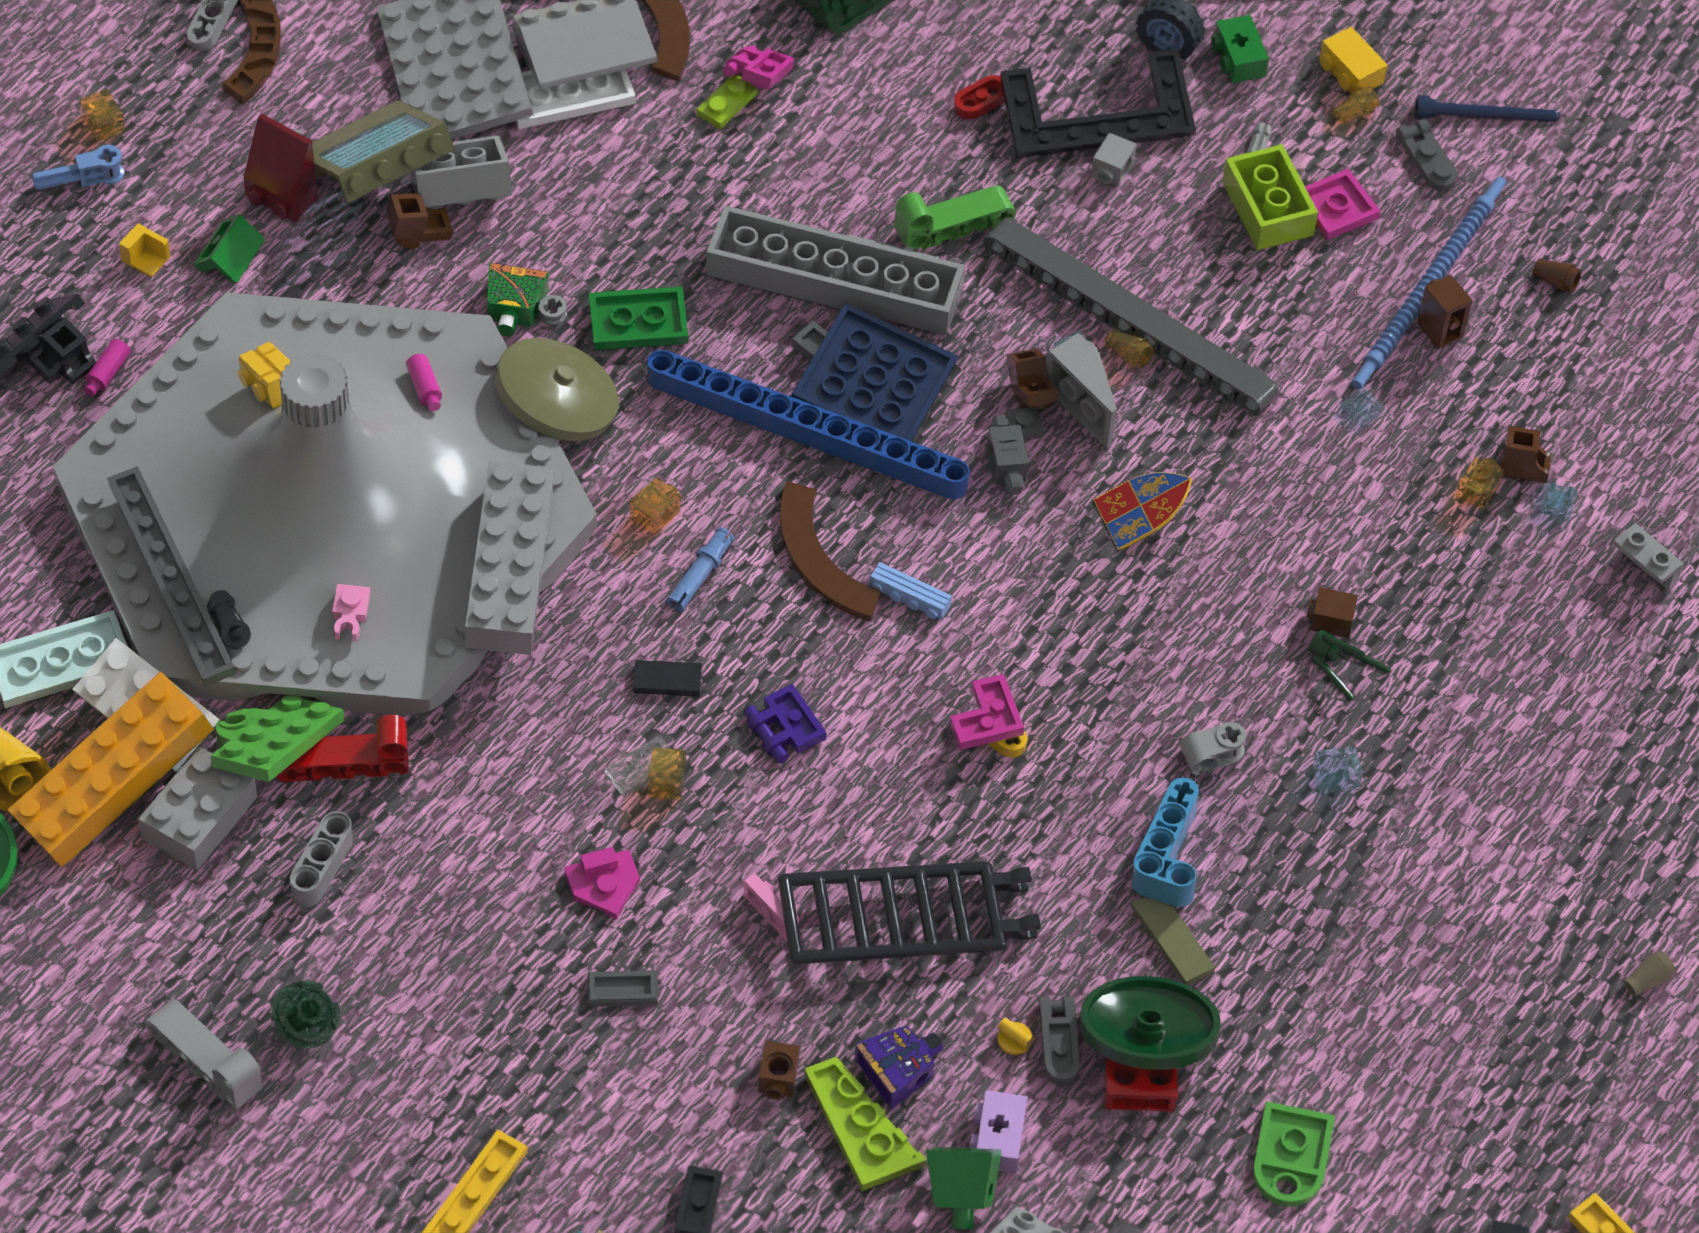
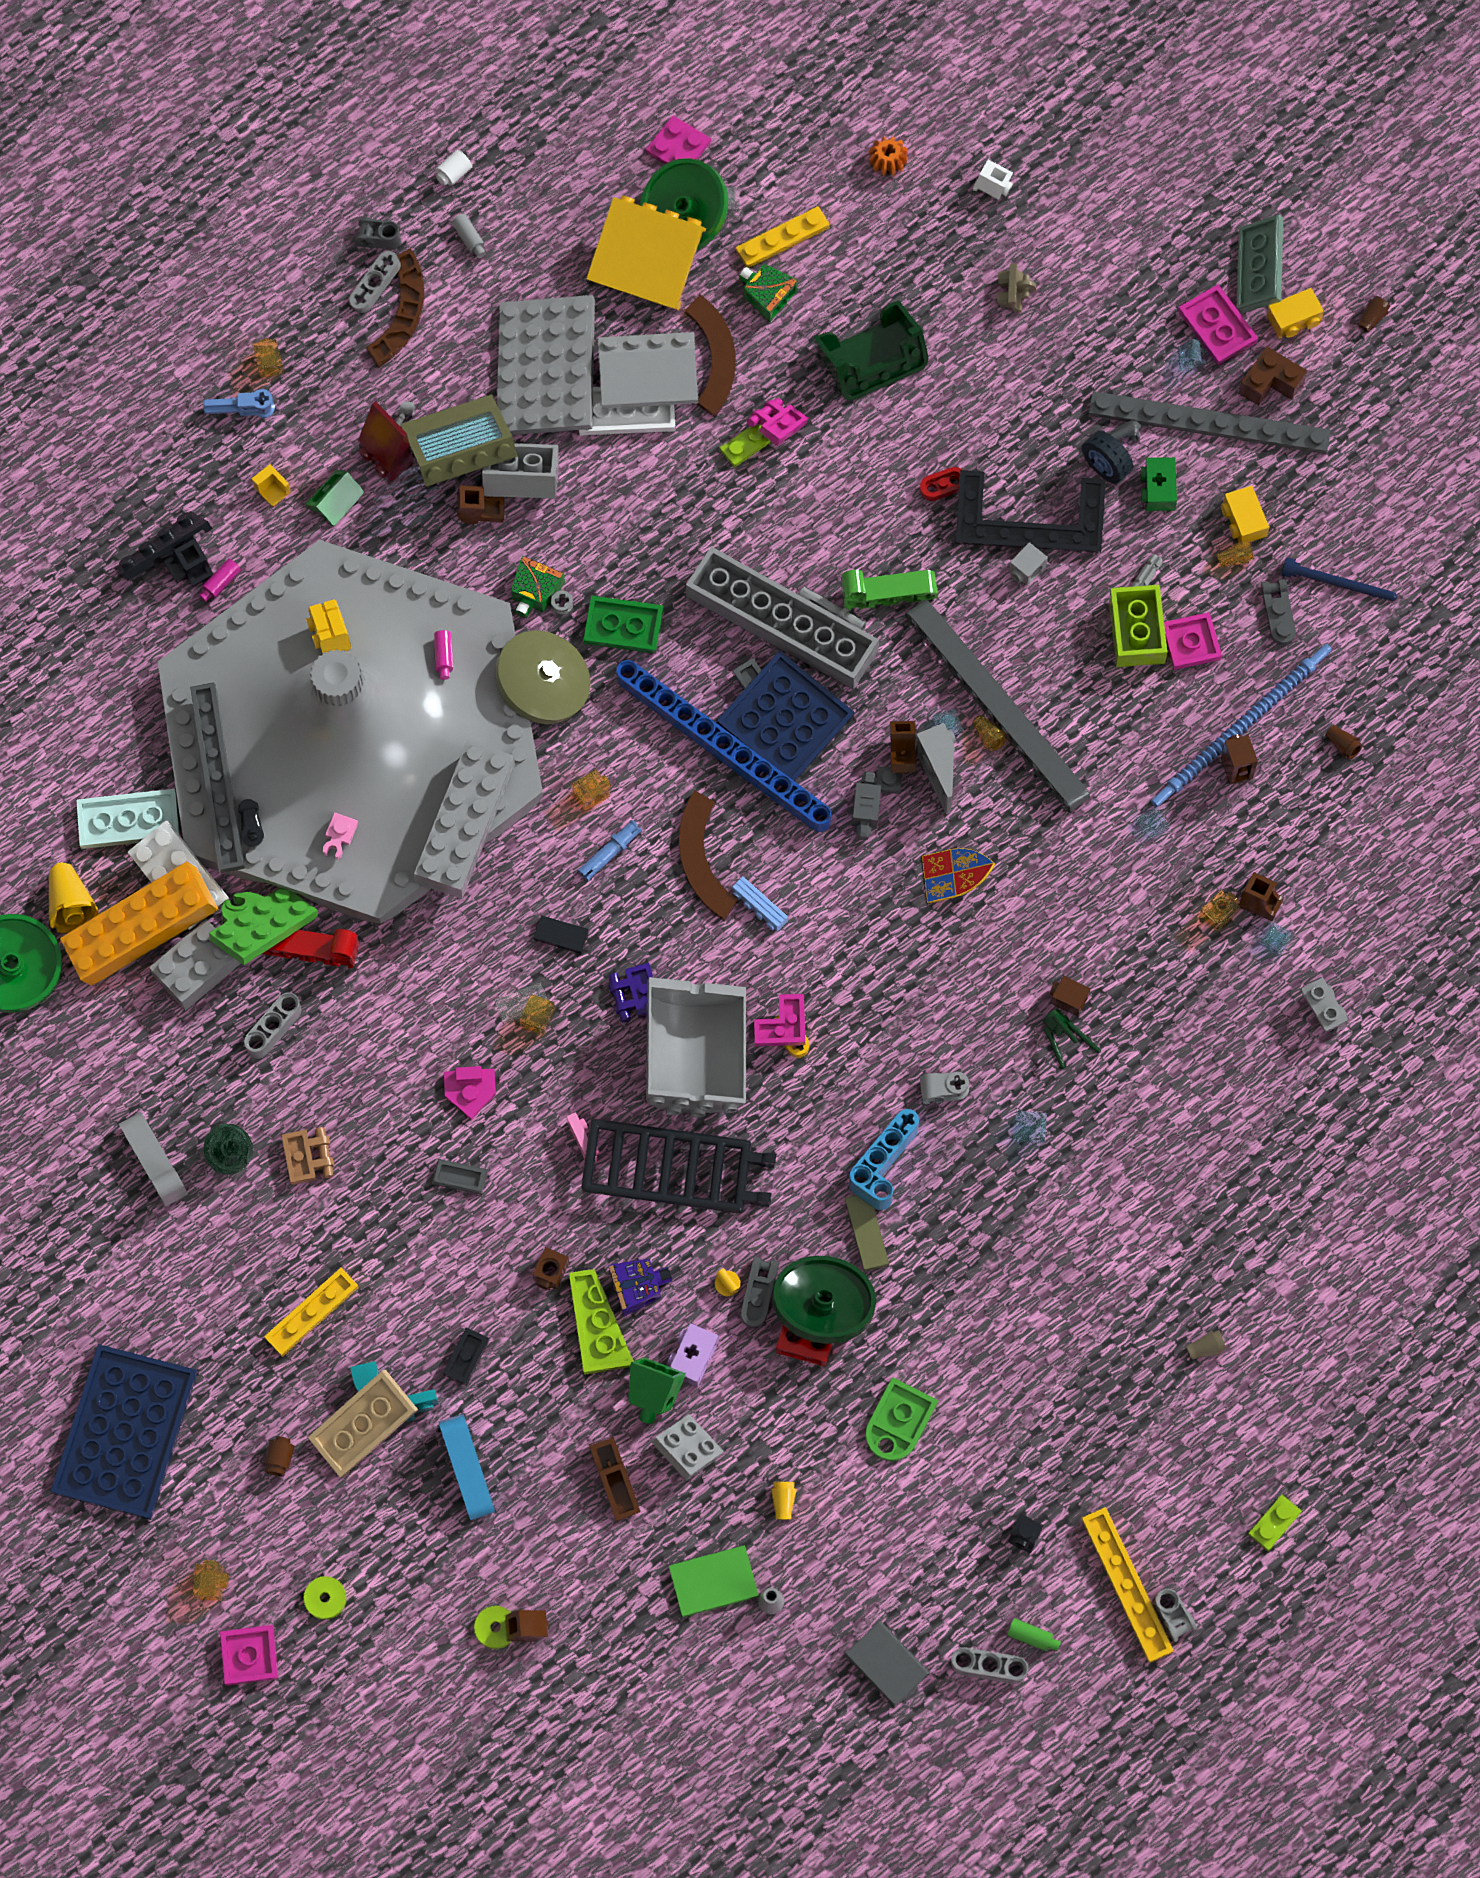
camera: 20 degrees right, 15 degrees up
(402, 1011) = (299, 1155): none -> medium nougat plate
(888, 762) = (695, 1047): none -> light grey cylinder

